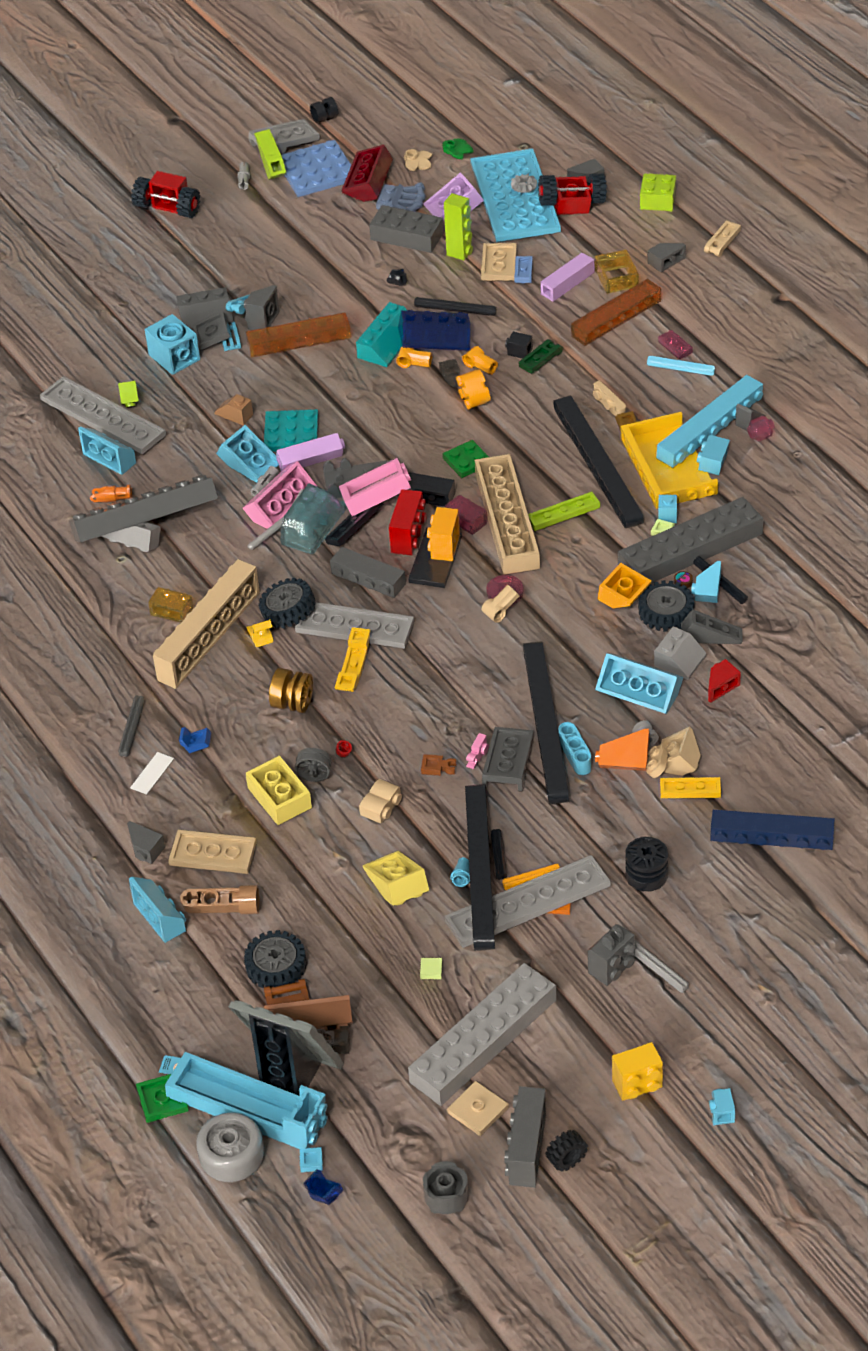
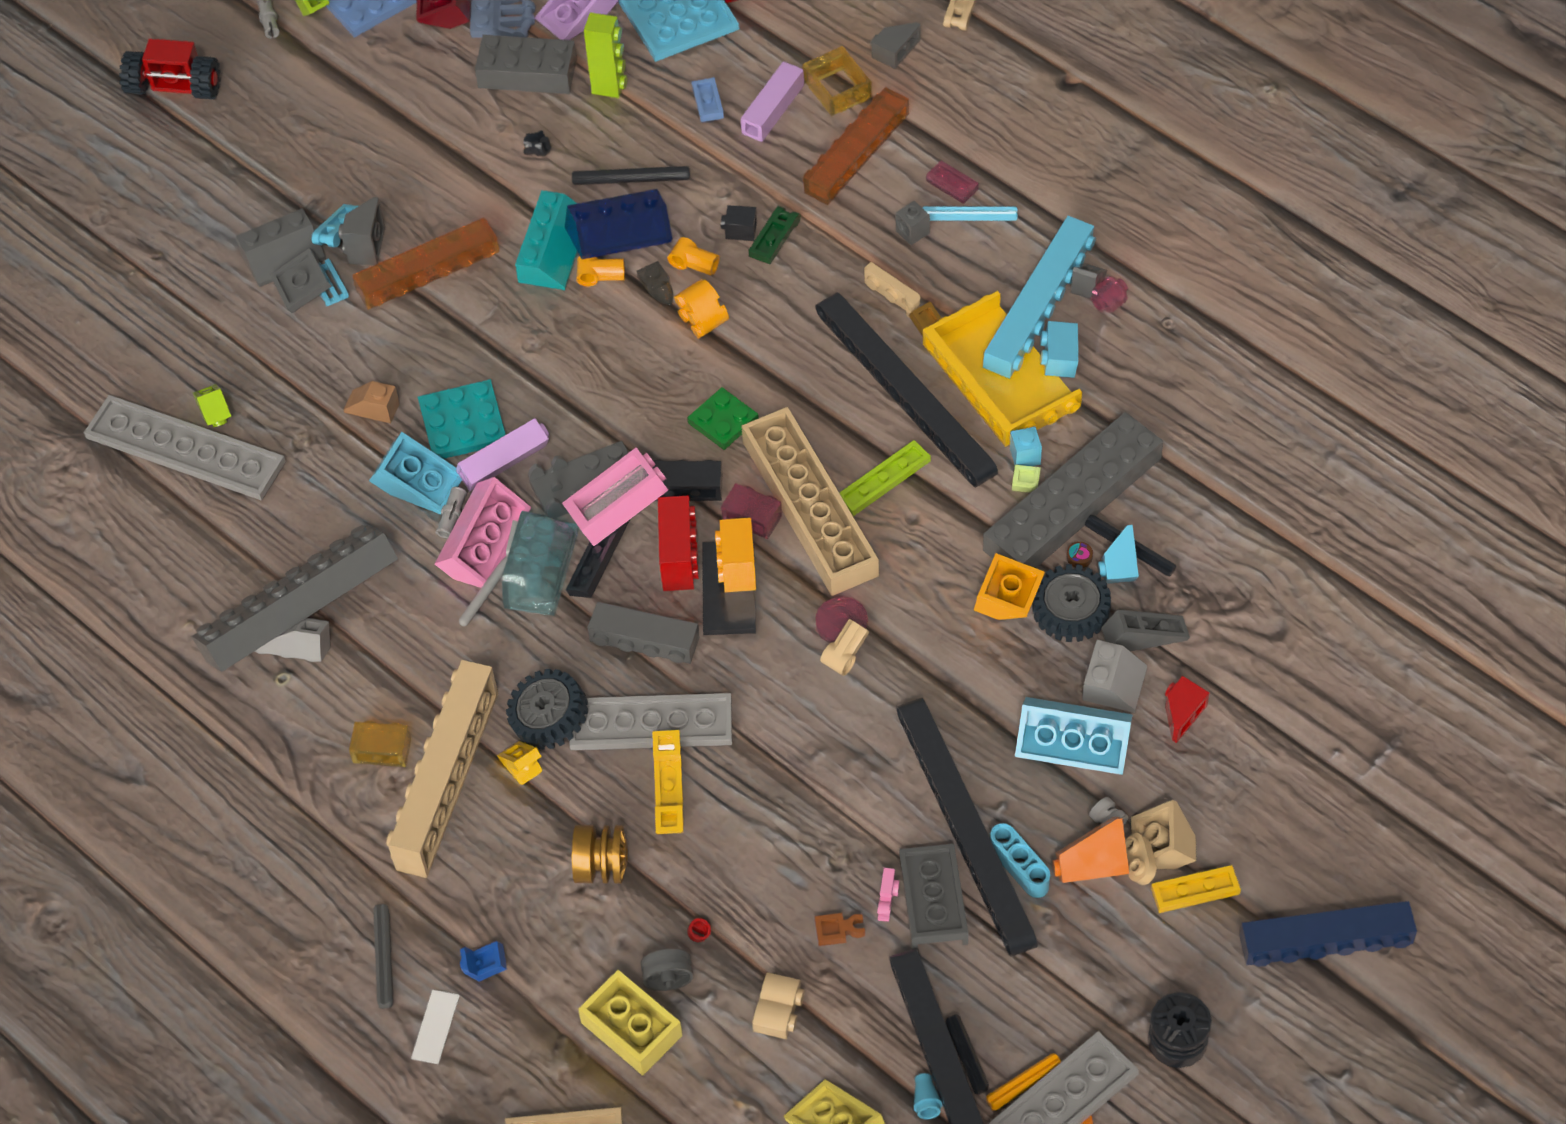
camera: 15 degrees left, 10 degrees up
(106, 450) = (210, 506): medium azure slope -> none
(111, 493) = (237, 575): orange piece -> none
(172, 344) = (253, 315): medium azure brick -> none
(498, 261) = (669, 93): tan plate -> none
(638, 363) = (912, 223): none -> dark grey brick

